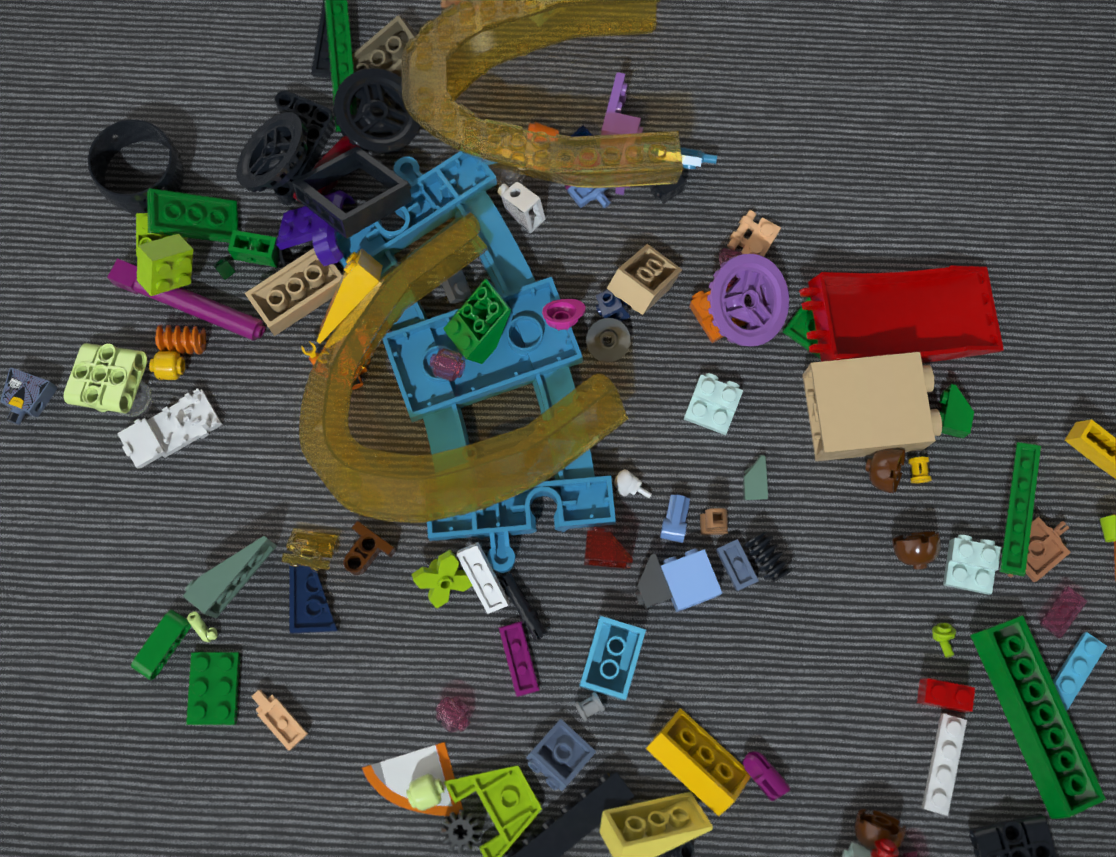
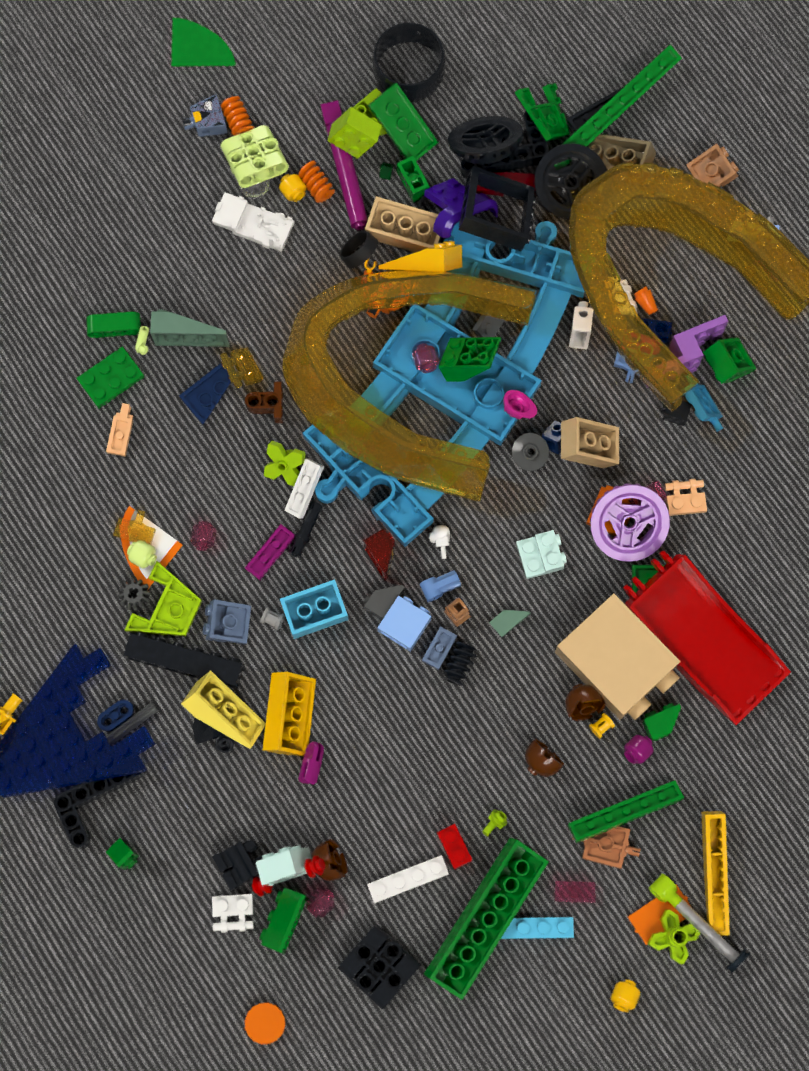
camera: 55 degrees right, 0 degrees up
(48, 365) = (236, 115): none -> orange piece
(292, 84) = (545, 116): none -> green wing
(293, 348) = (363, 253): none -> black tyre
(393, 780) = (134, 529): none -> clear yellow plate
(655, 106) = (729, 360): none -> green slope
(966, 453) = (638, 749): none -> magenta head
(971, 564) = (560, 806): light aqua plate -> none

